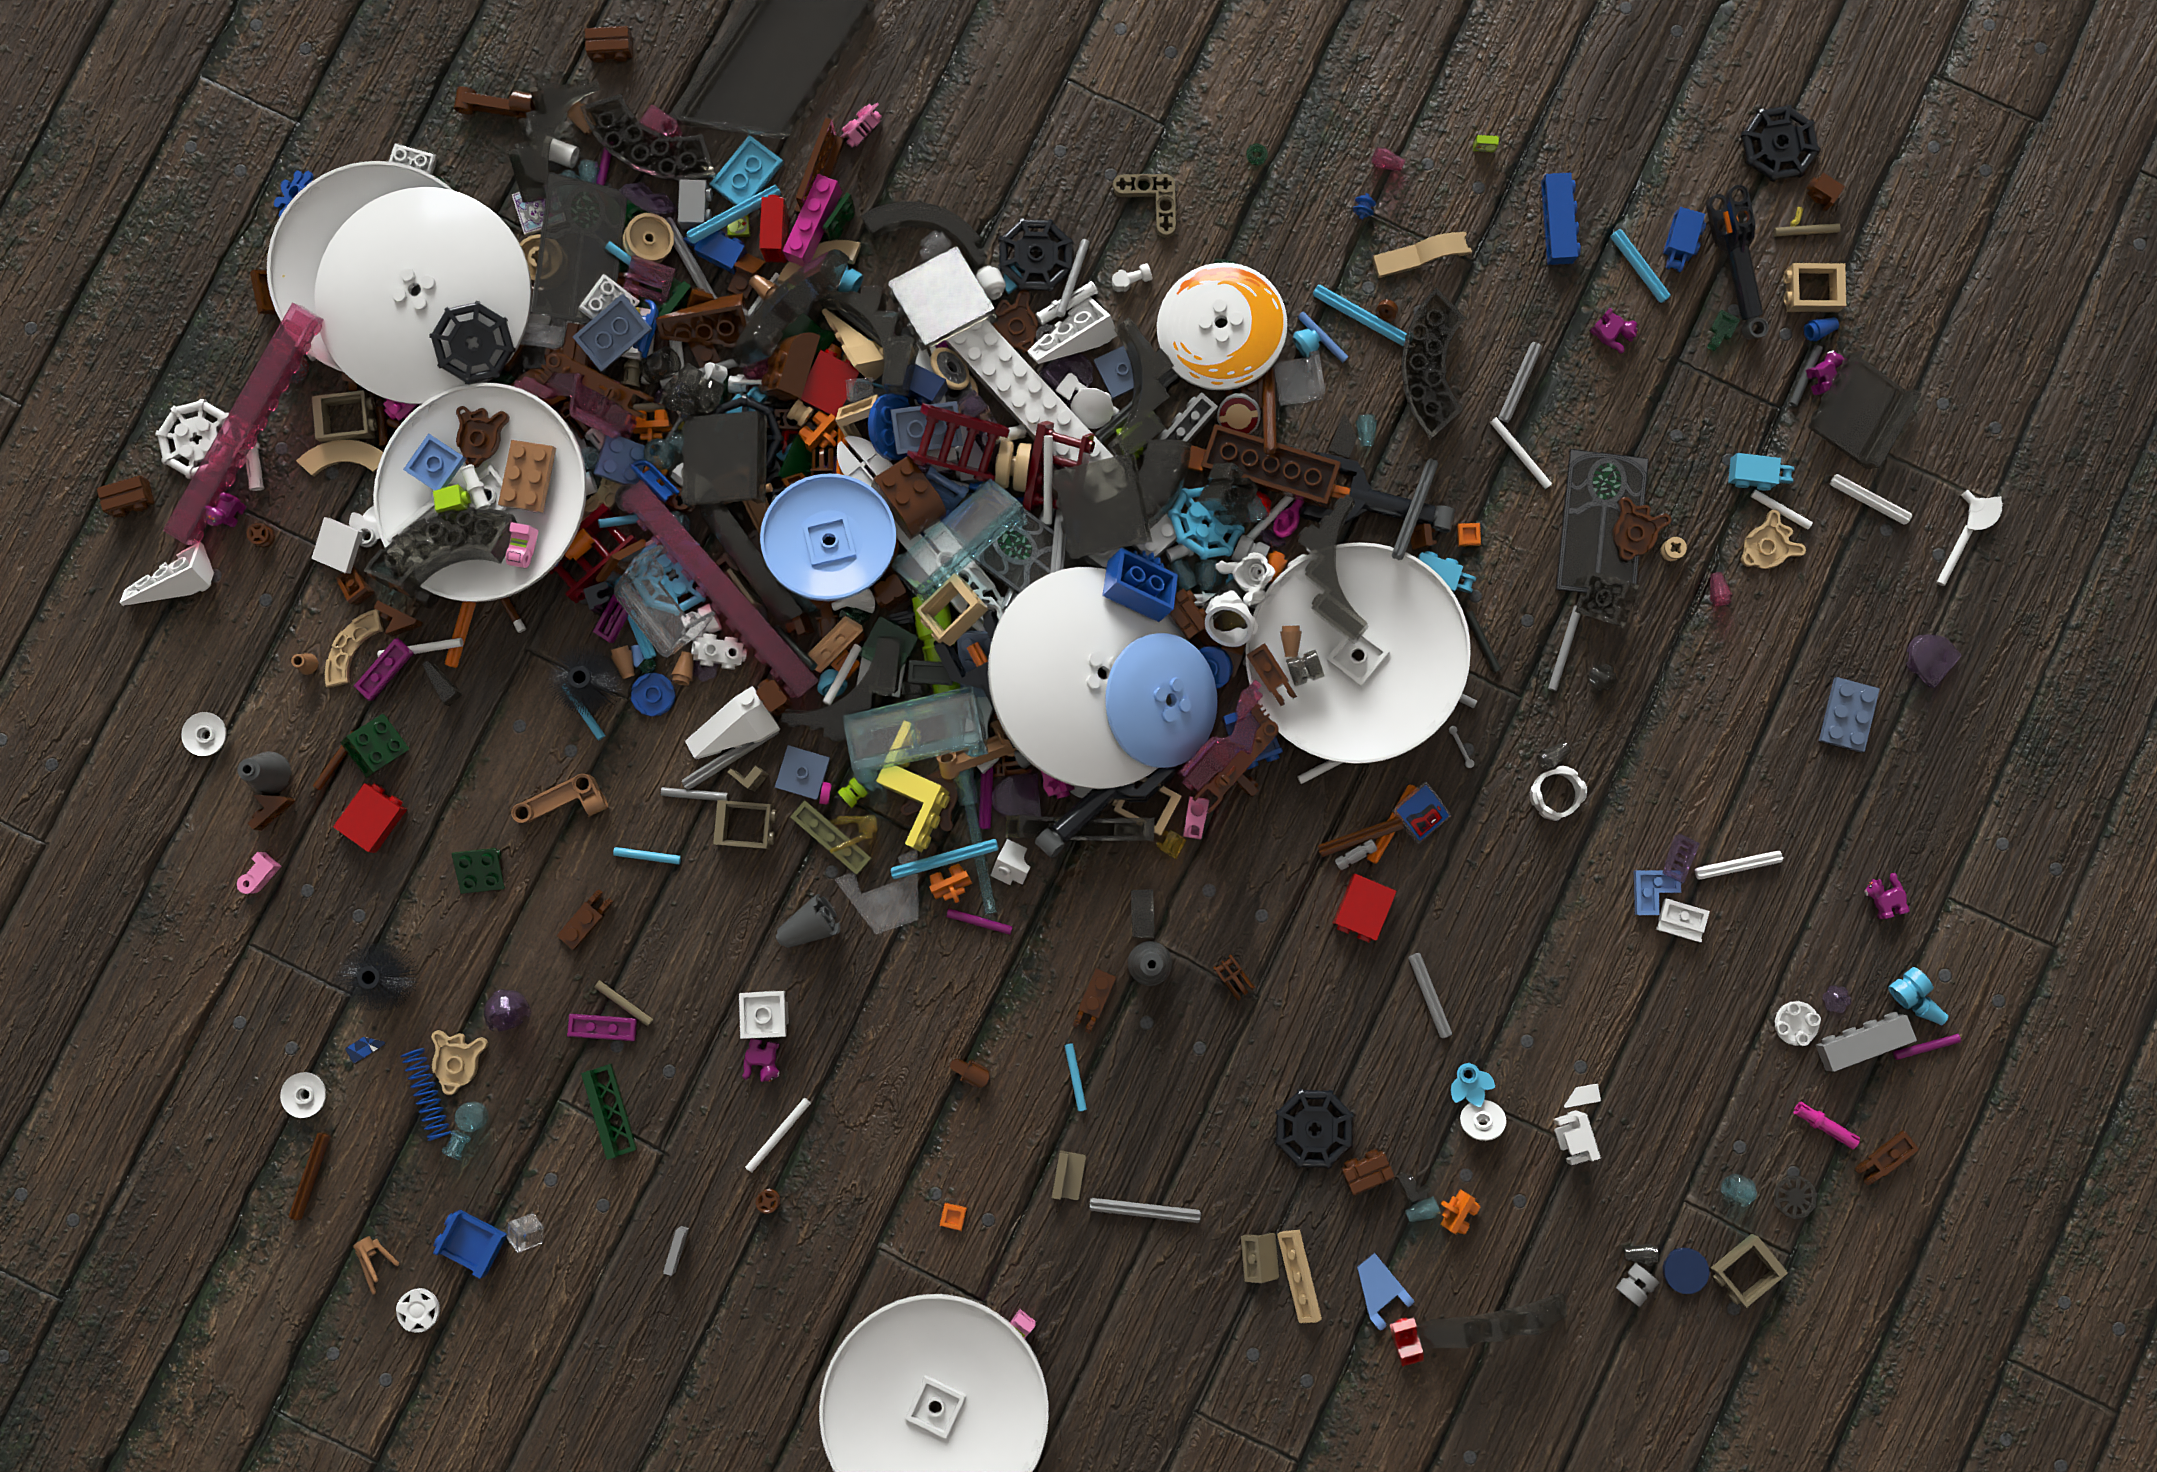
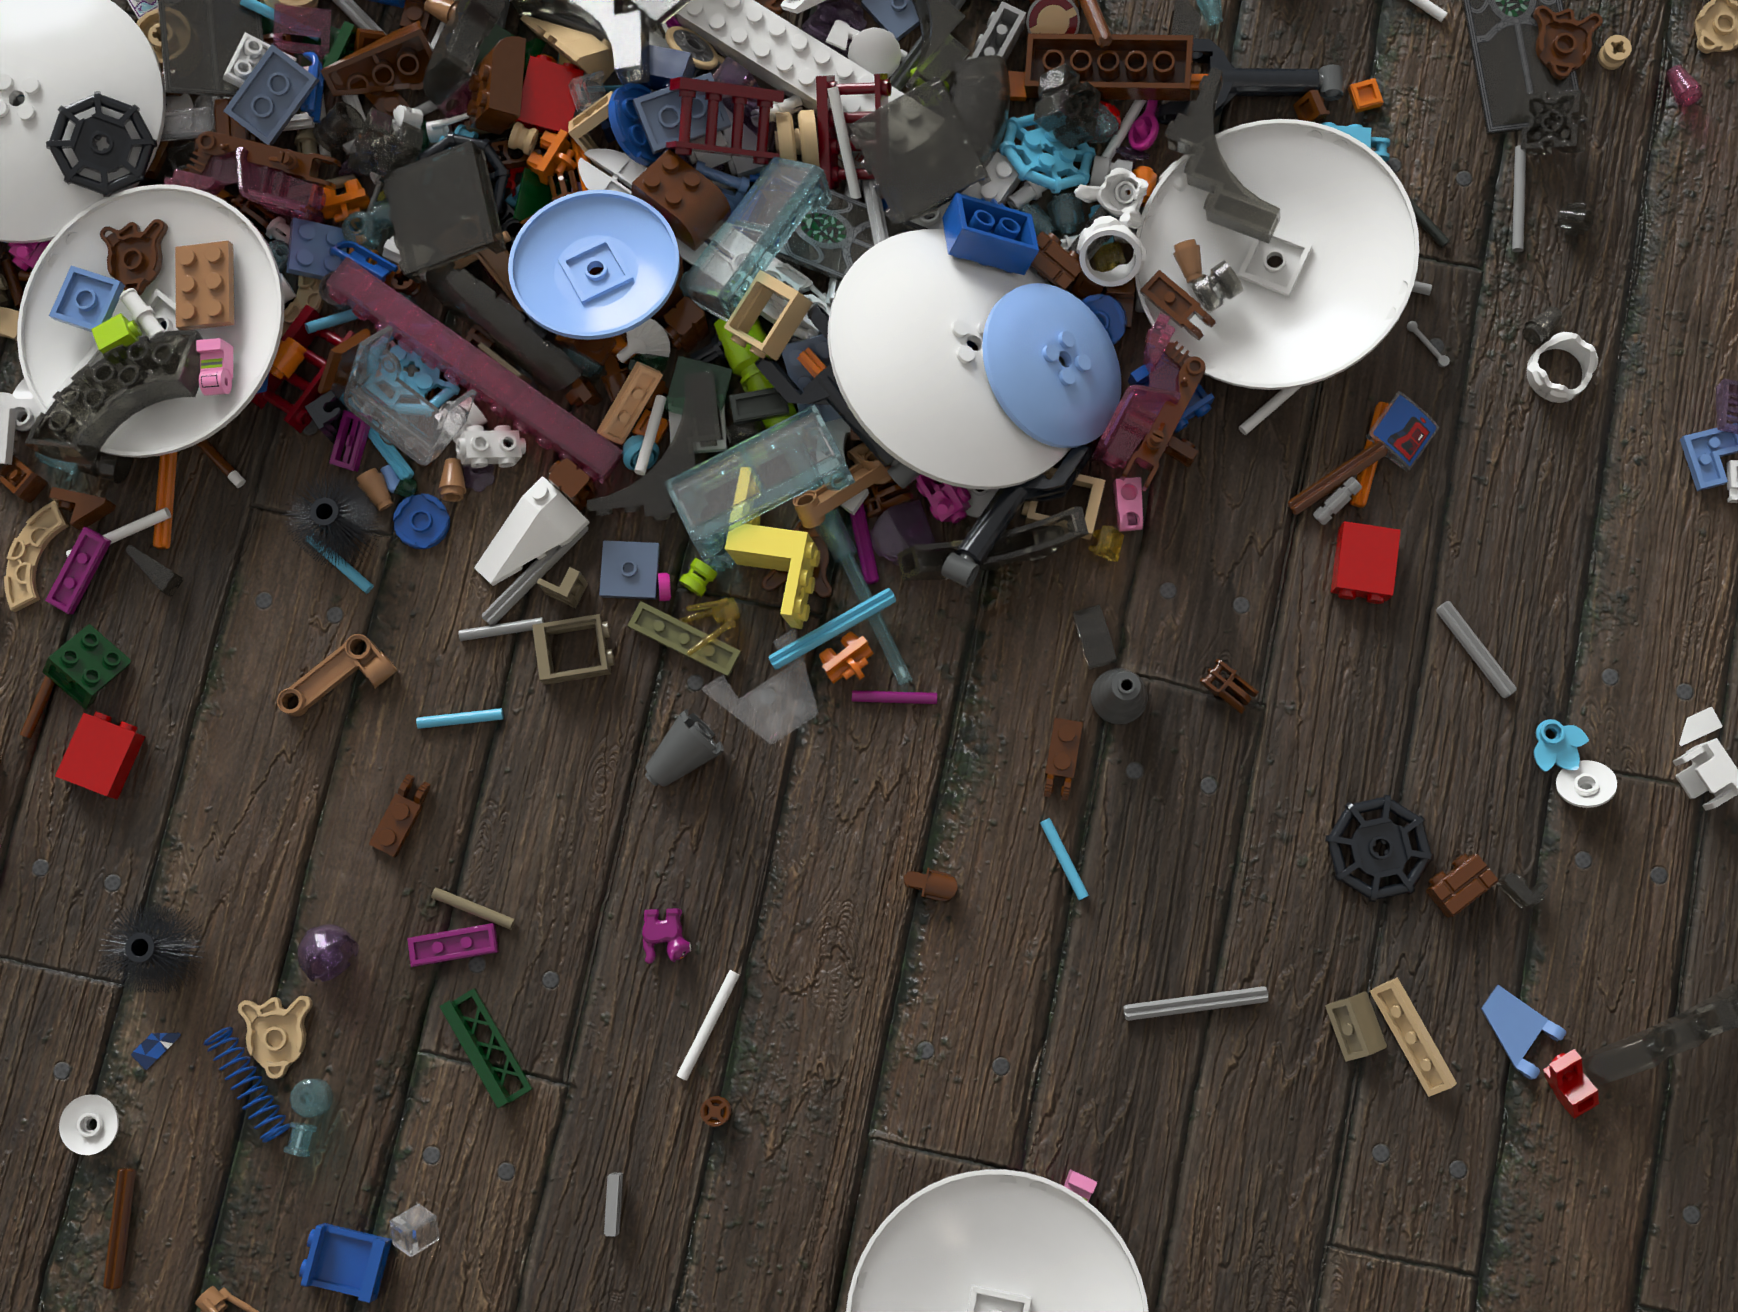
camera: 10 degrees left, 5 degrees down
(478, 870) = (251, 787): dark green hinge -> none
(763, 1014) = (653, 875): white panel -> none
(802, 655) = (594, 424): pearl dark grey bar -> none
(953, 1216) = (955, 1073): orange tile -> none
(1011, 864) = (916, 615): white brick -> none
(1068, 1175) = (1088, 984): dark tan panel -> none
(1414, 509) = (1295, 74): dark grey axle -> none
(1423, 1210) = (1544, 914): clear light blue cone -> none
(1457, 1210) = (1587, 905): orange hips -> none

